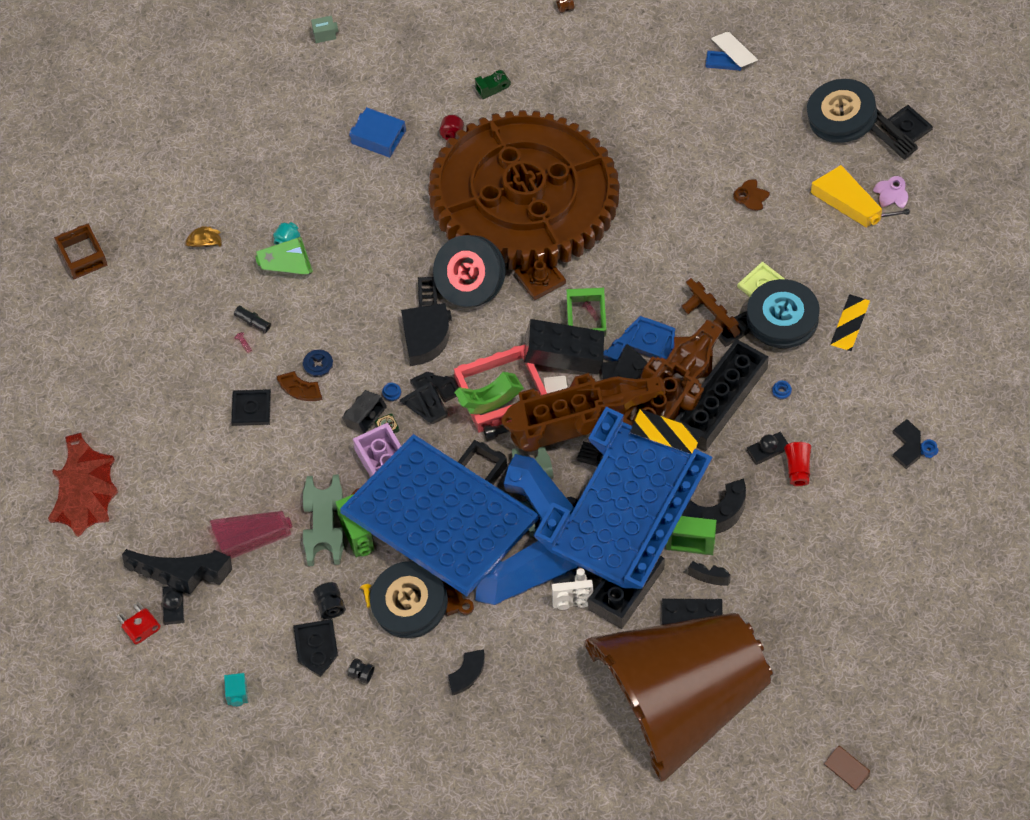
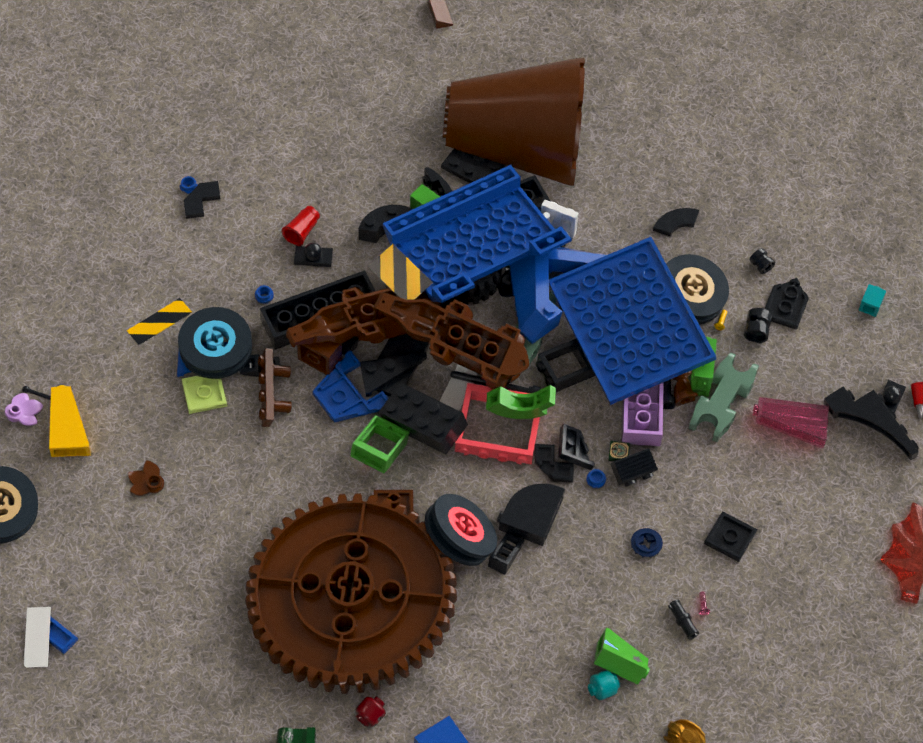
camera: 155 degrees left, 0 degrees up
(298, 388) = (677, 530): reddish brown tile -> none

